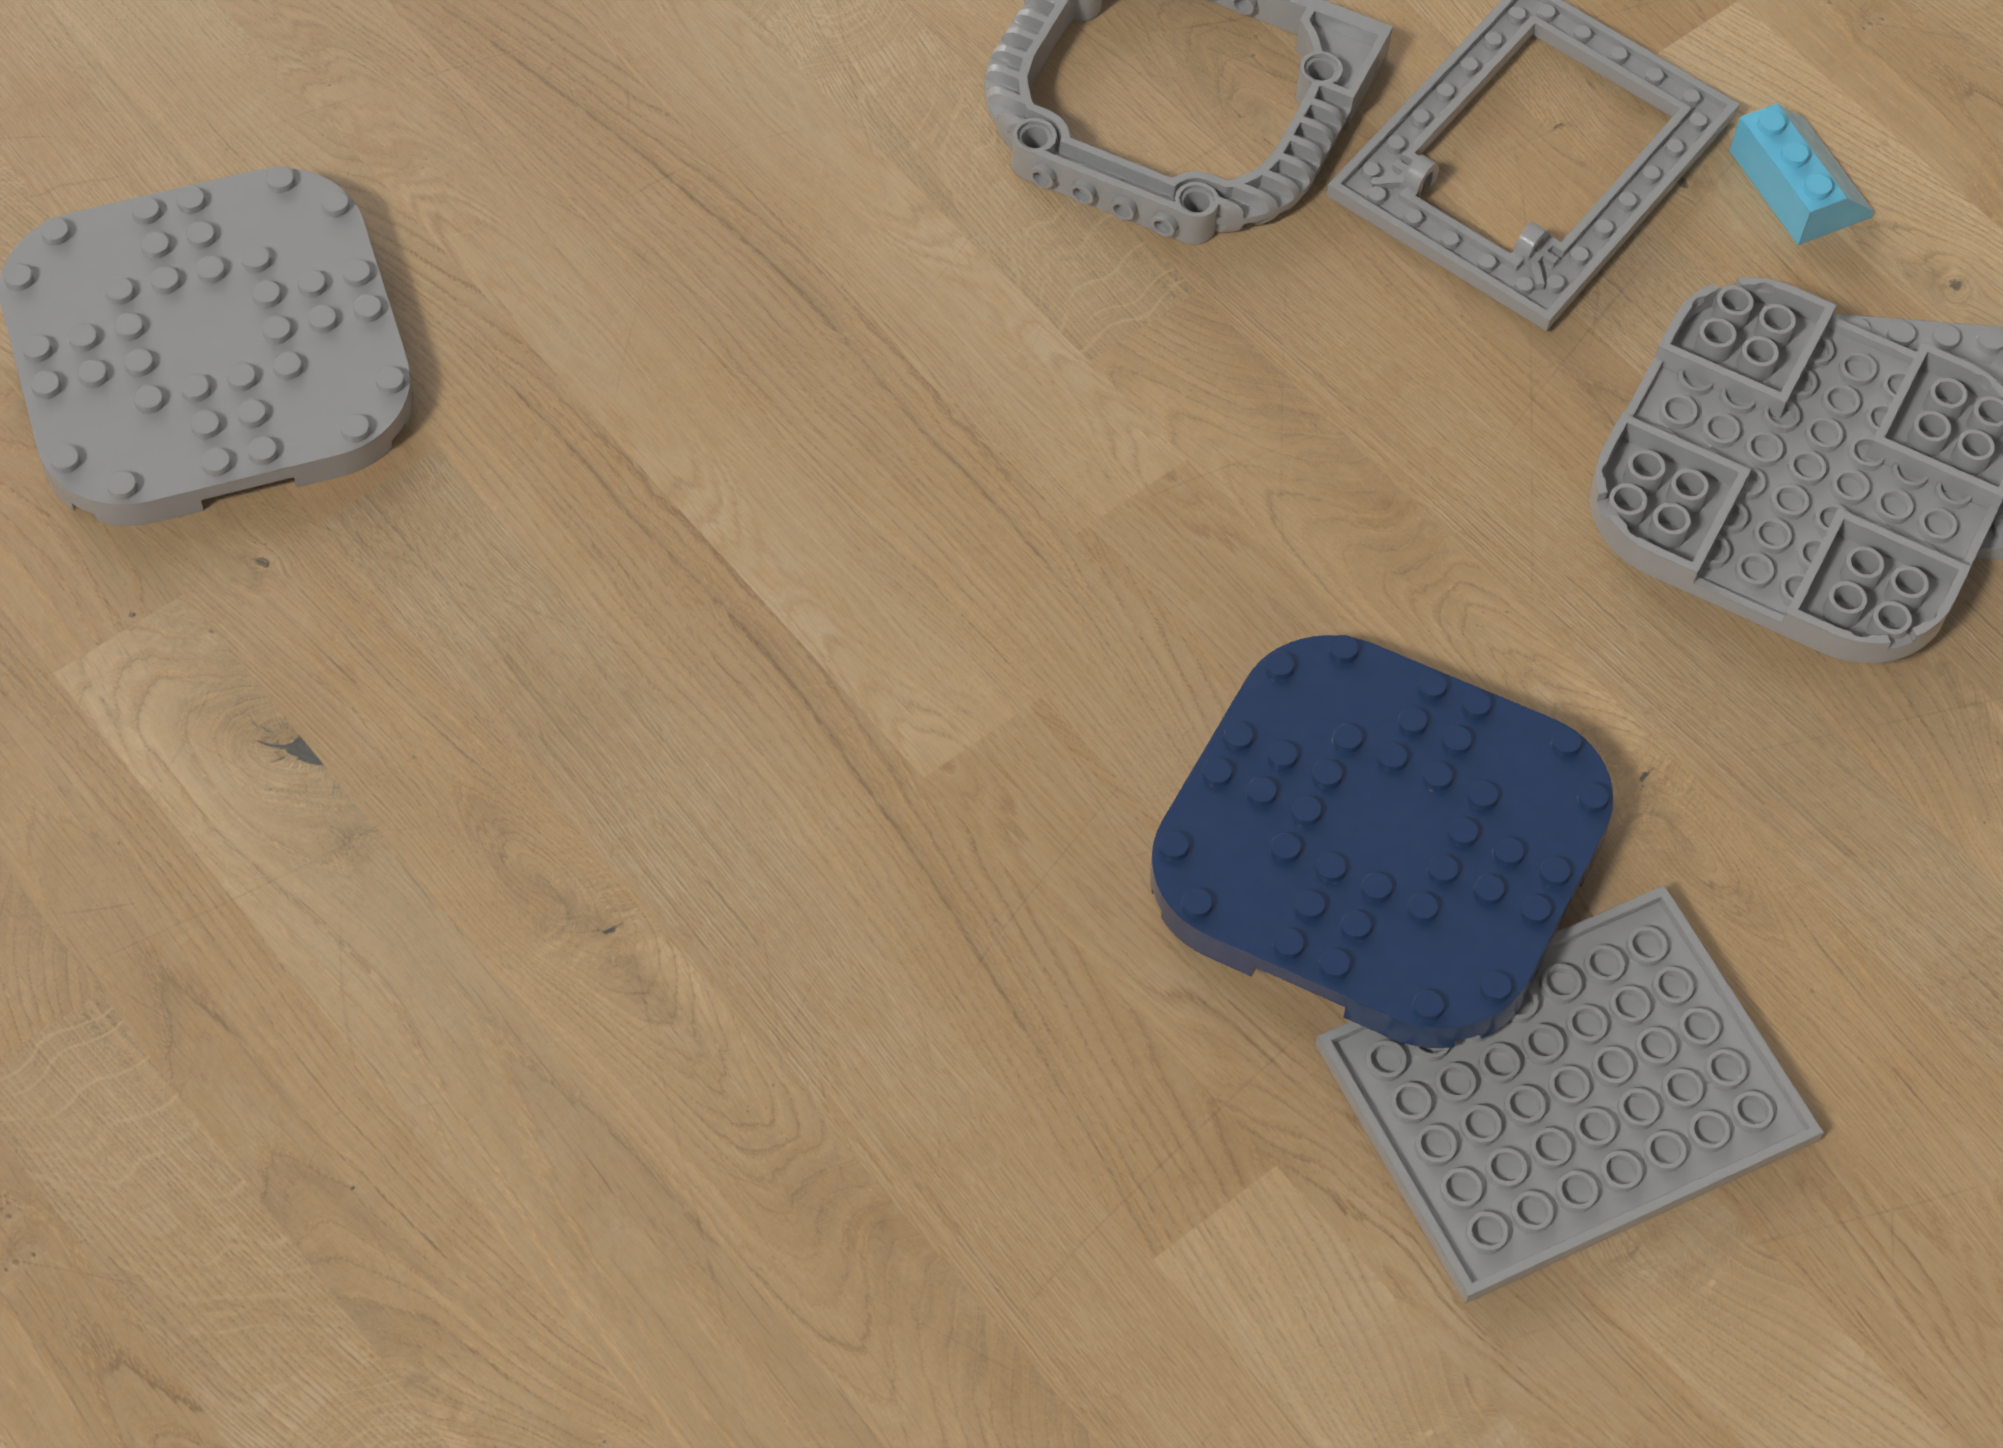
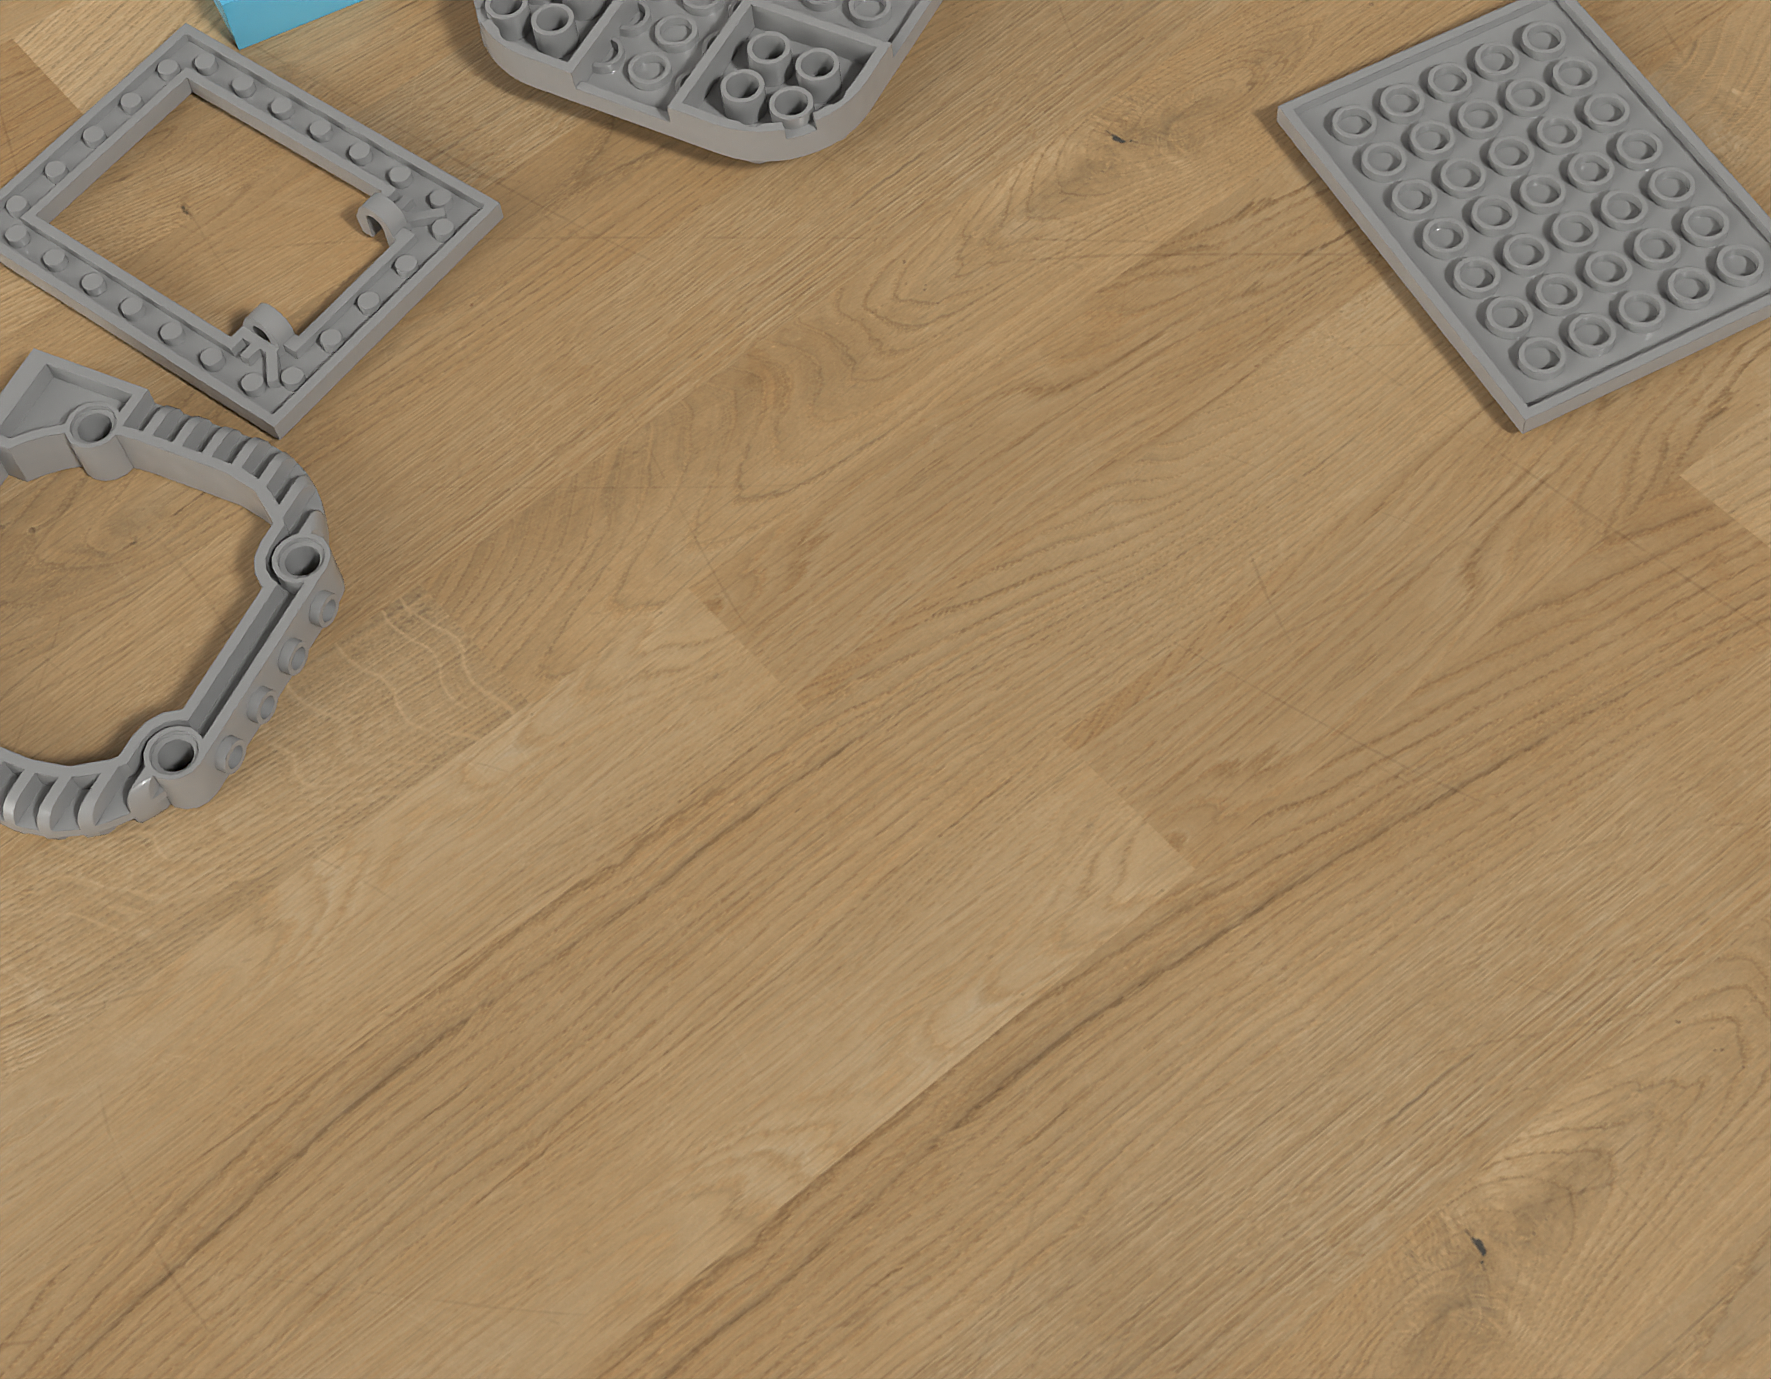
camera: 80 degrees left, 0 degrees up
(1382, 839) = (1254, 362): dark blue plate -> none

